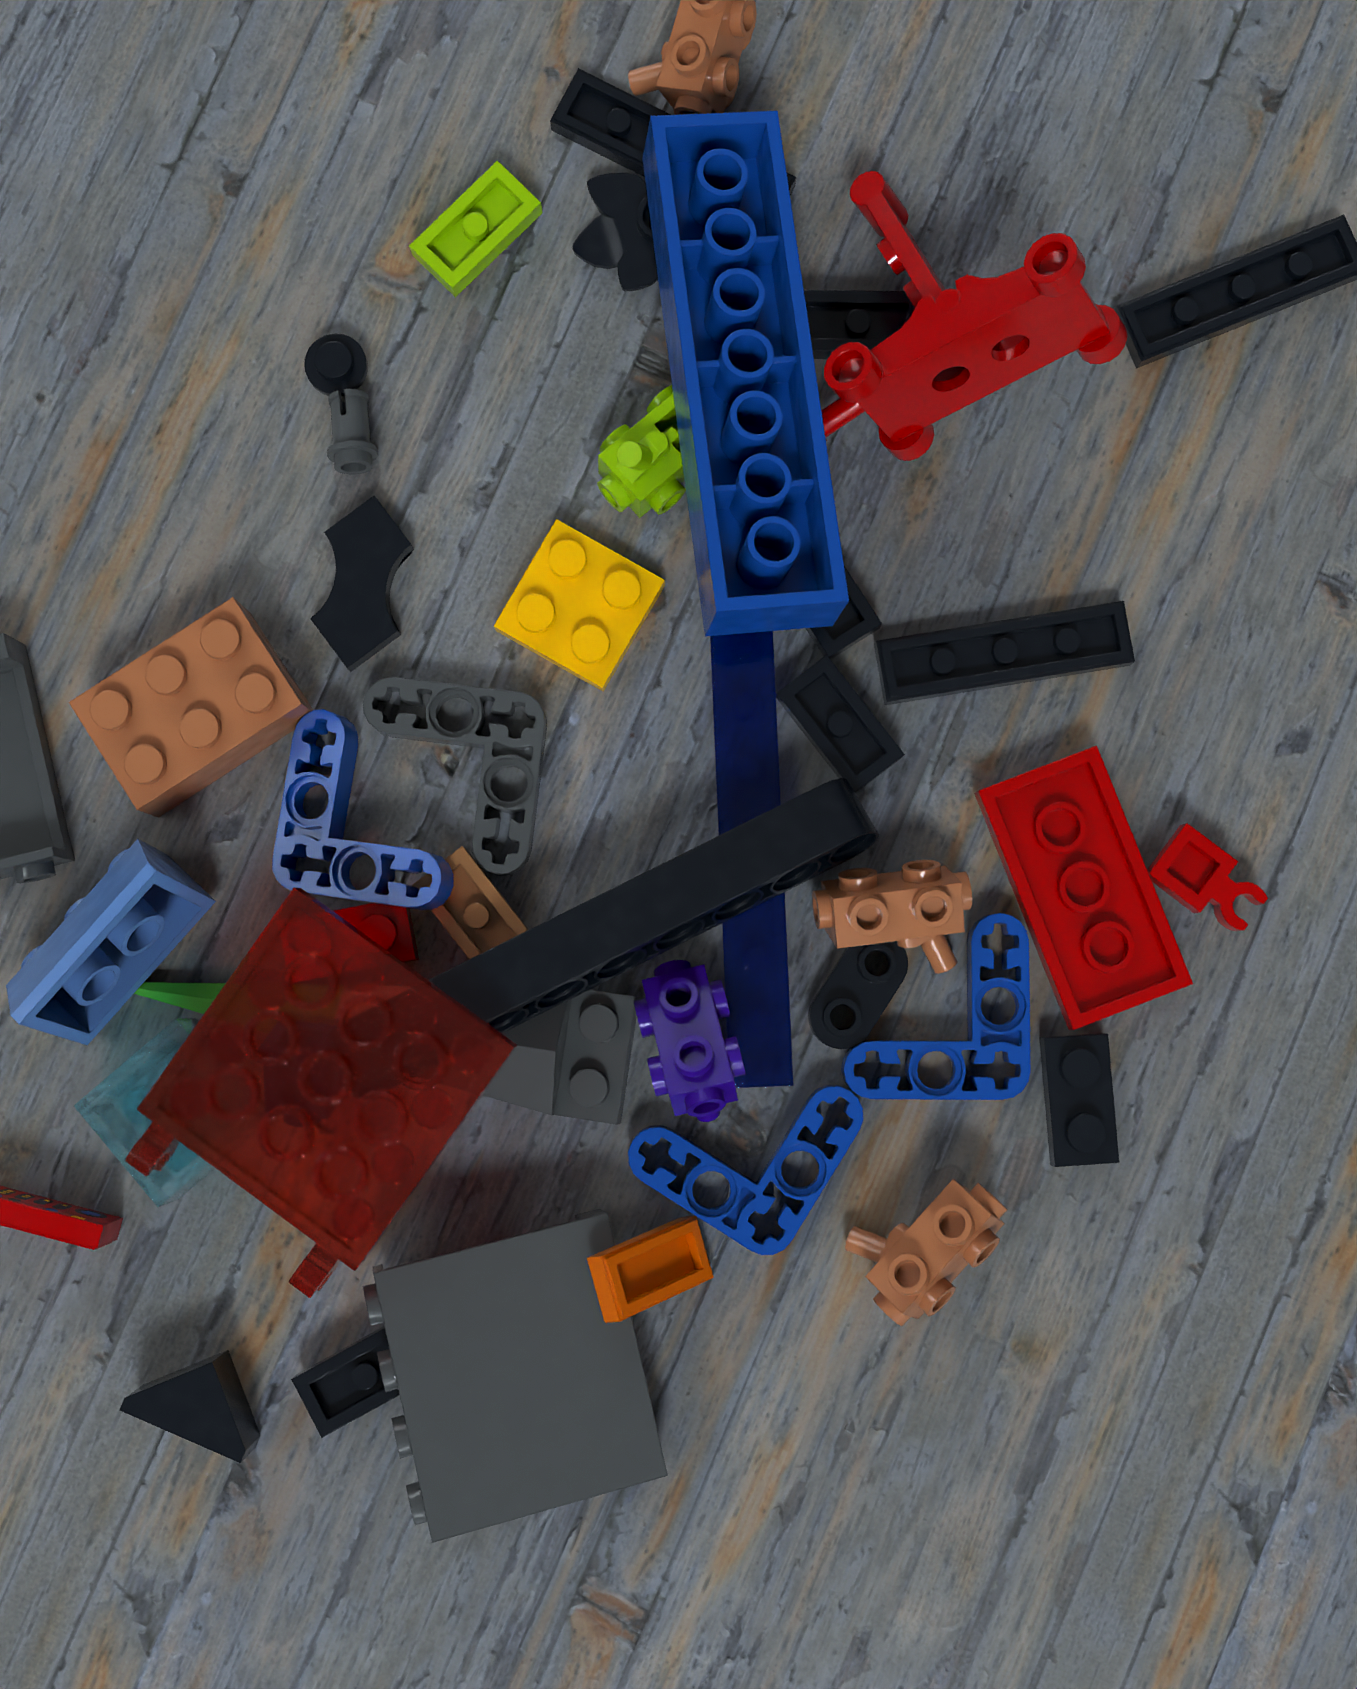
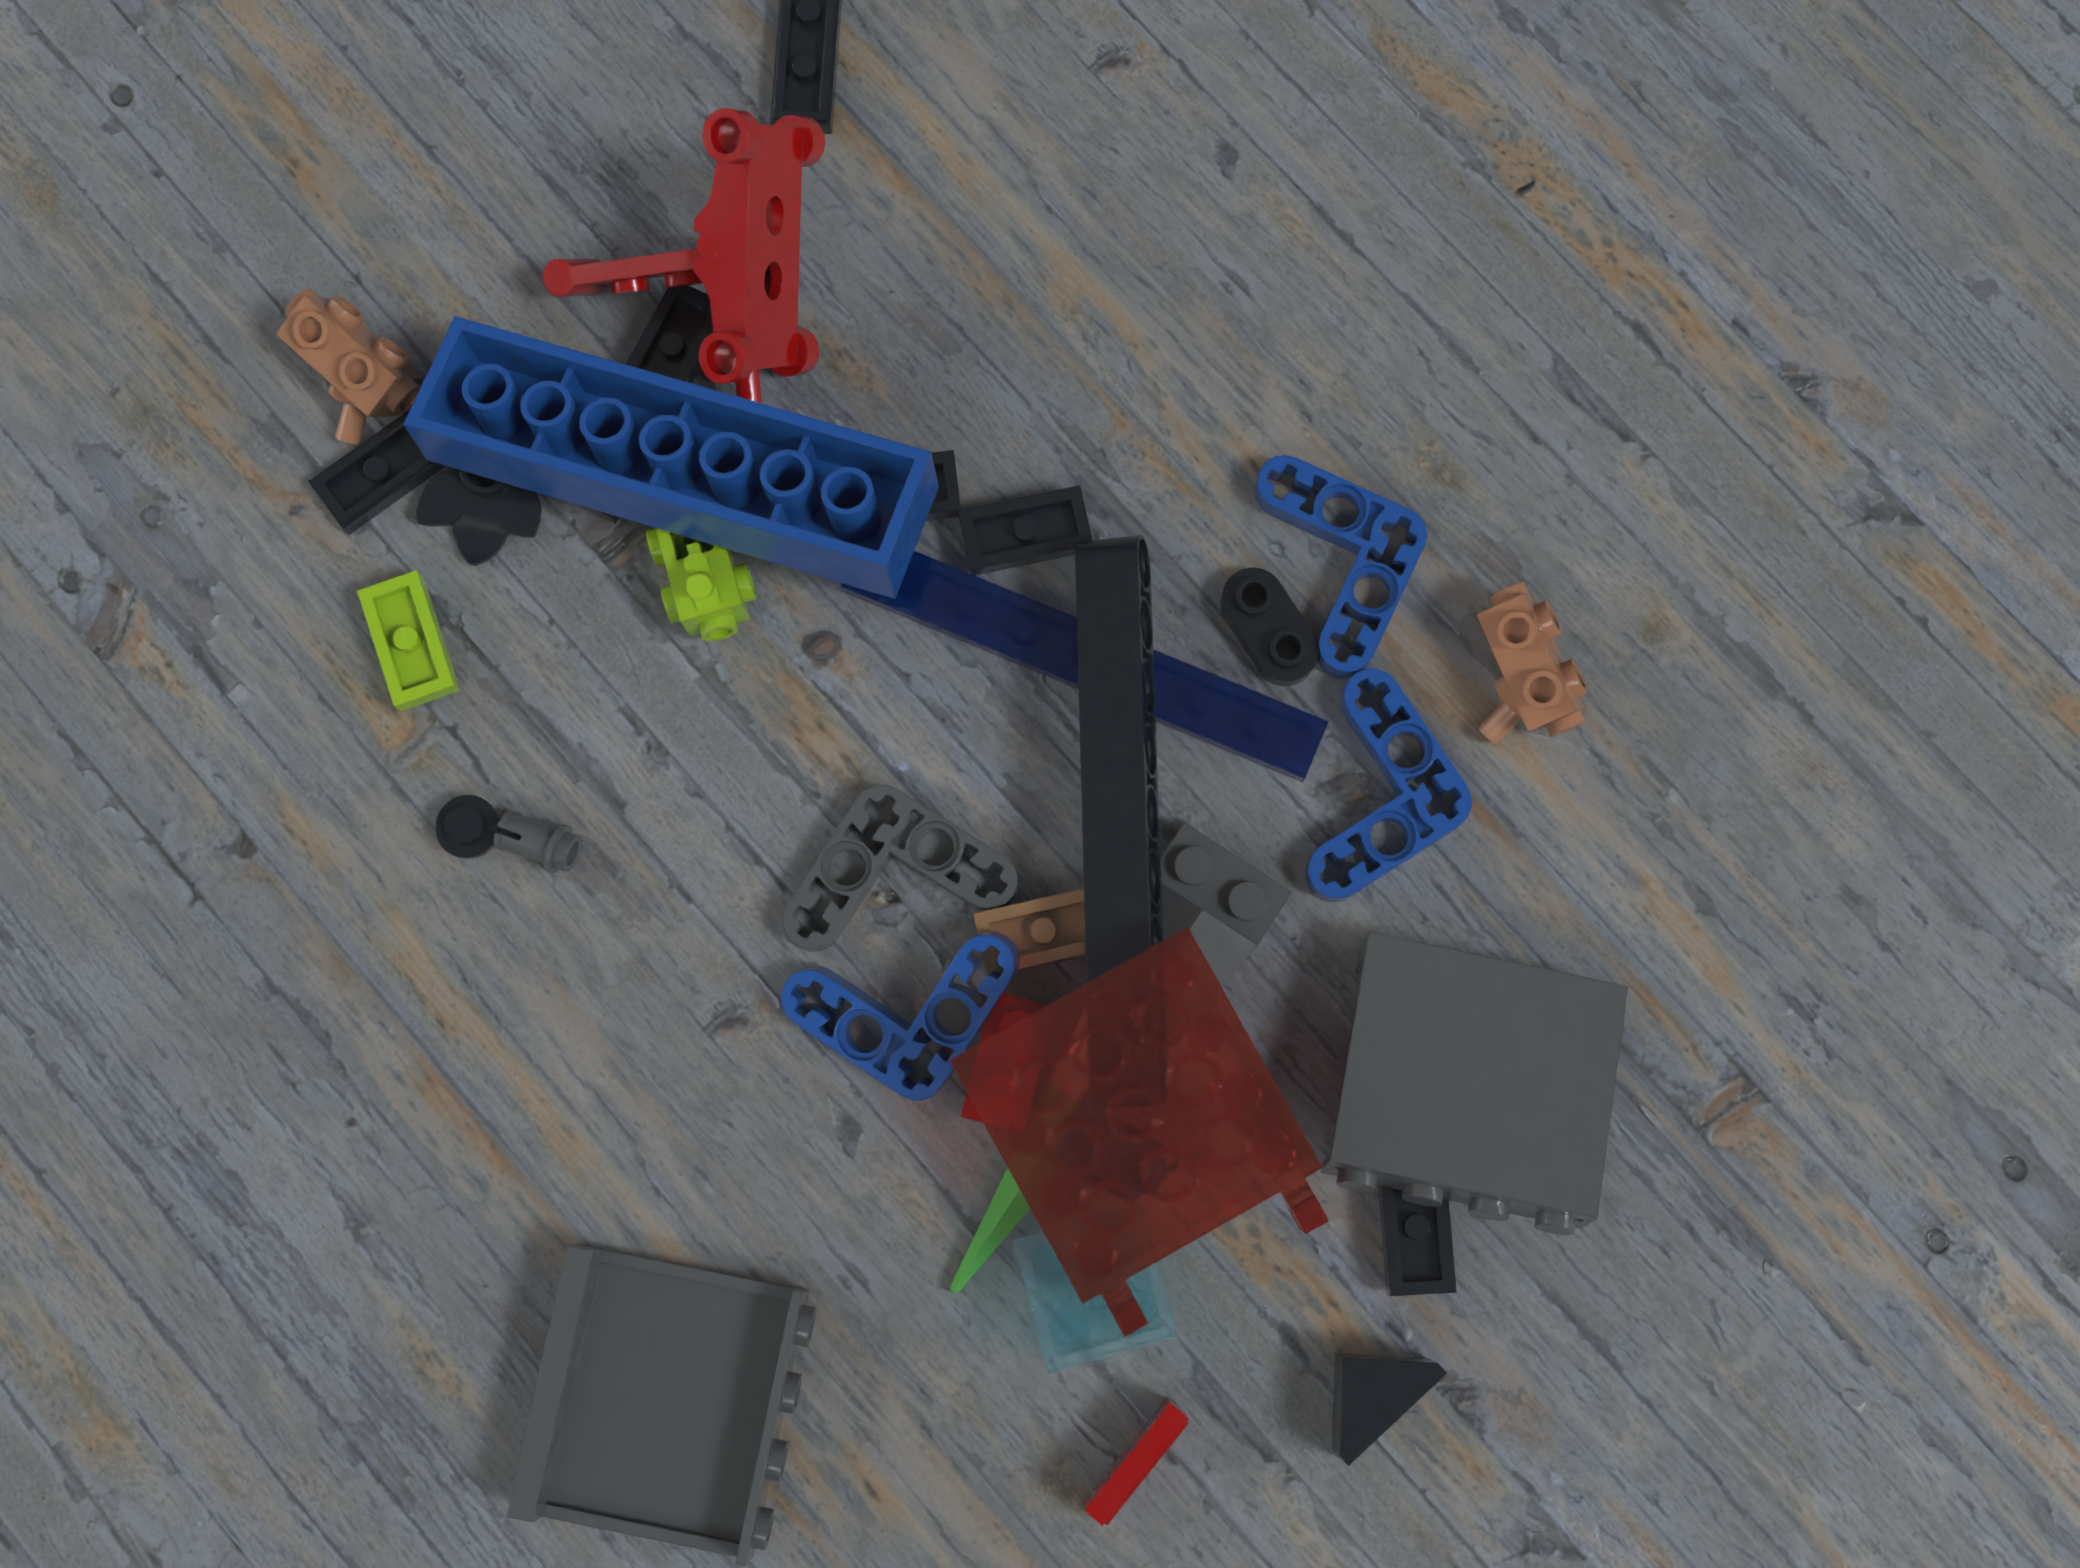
camera: 65 degrees left, 5 degrees down
(107, 945) = (906, 1282): medium blue slope -> none
(192, 709) = (724, 1101): nougat brick -> none
(358, 610) = (657, 880): black tile -> none
(579, 605) = (802, 710): yellow plate -> none
(649, 1268) = (1436, 918): orange tile -> none
(693, 1056) = (1260, 790): dark purple brick -> none
(899, 906) = (1214, 548): nougat brick -> none
(1004, 652) = (1029, 362): black tile -> none
(1079, 1100) = (1454, 482): black plate -> none
(1083, 888) = (1270, 391): red plate -> none
(1197, 873) = (1304, 290): red plate -> none

